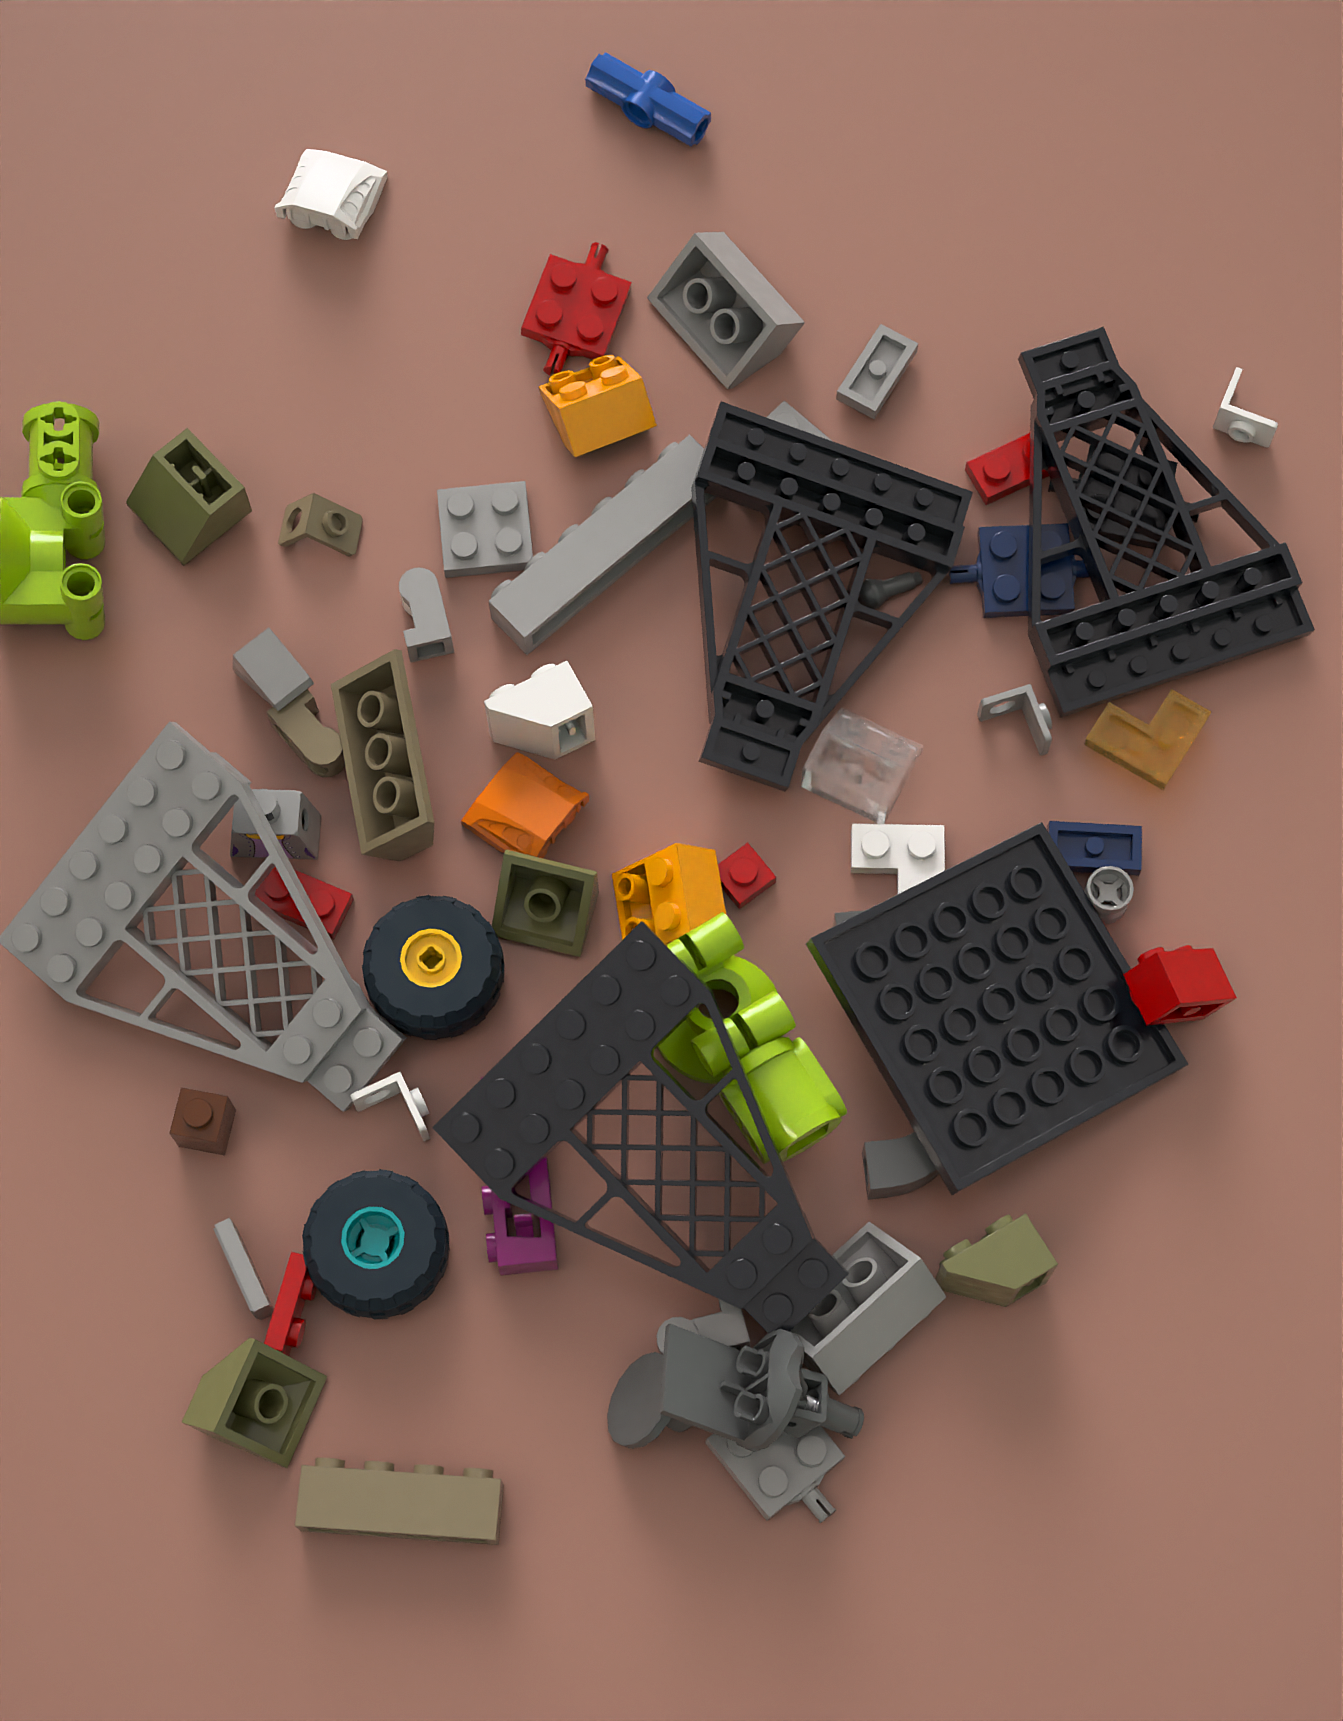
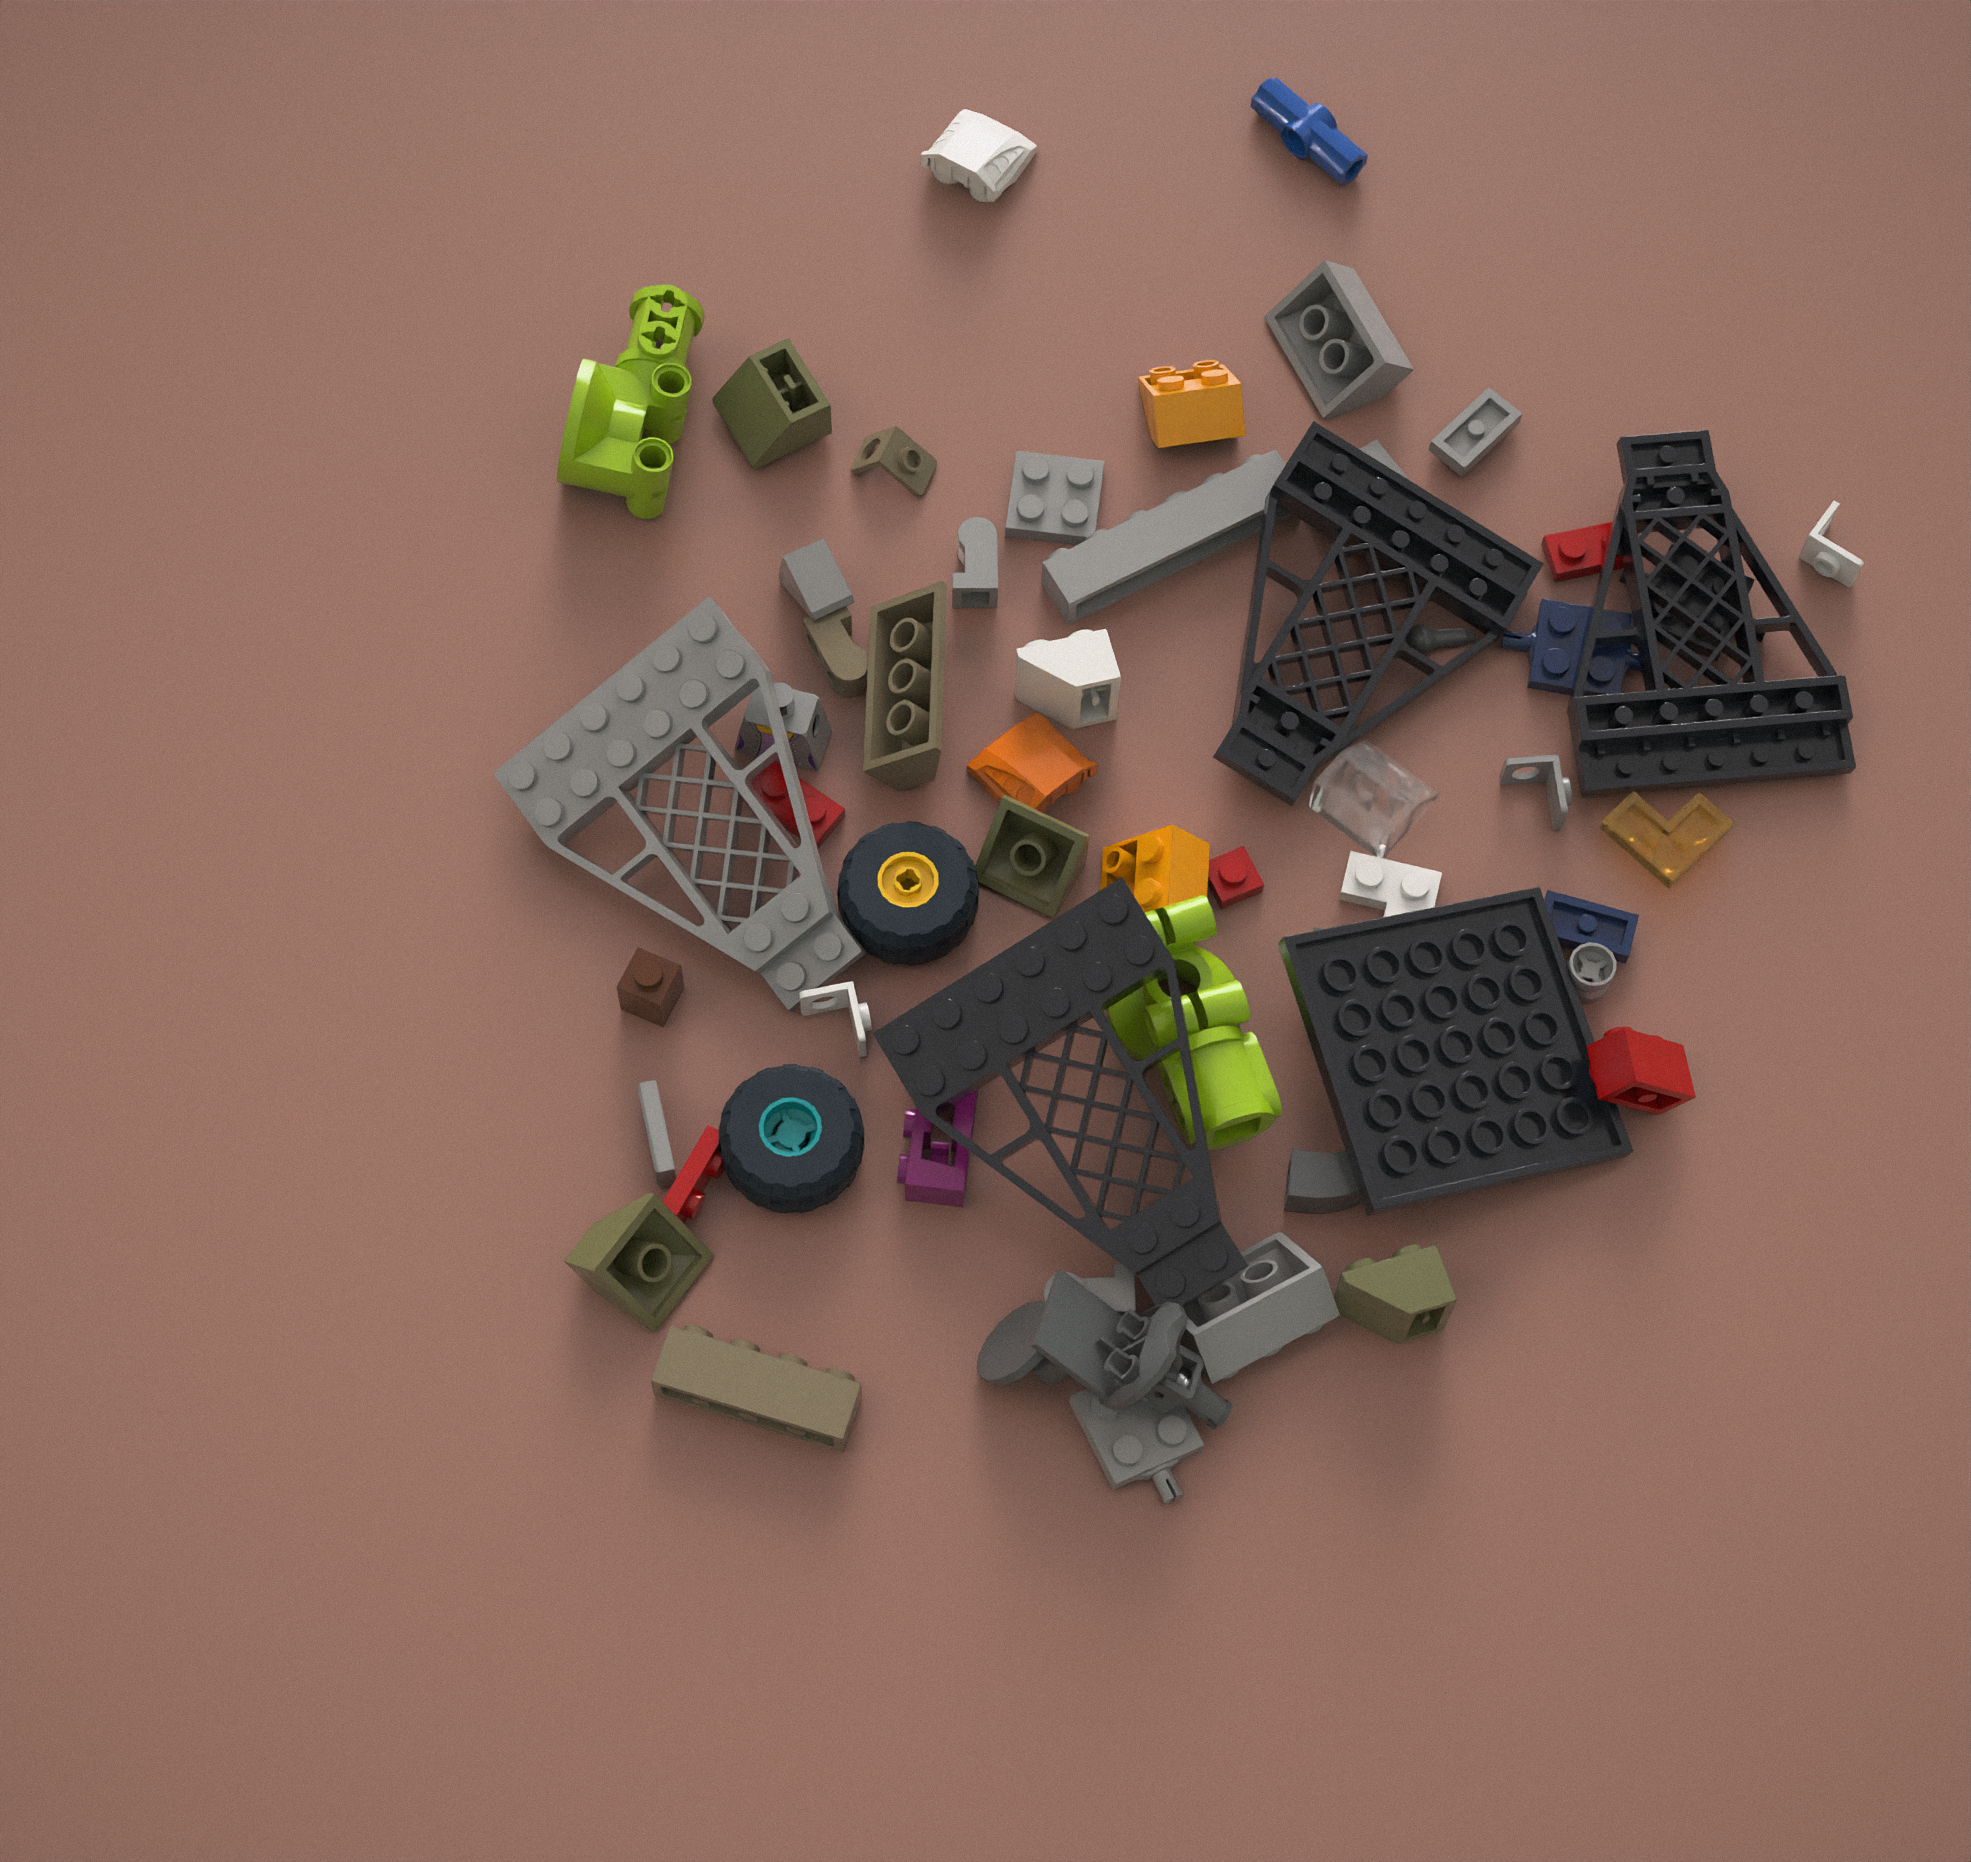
camera: 10 degrees right, 5 degrees down
(575, 308) = (1191, 311): red plate -> none

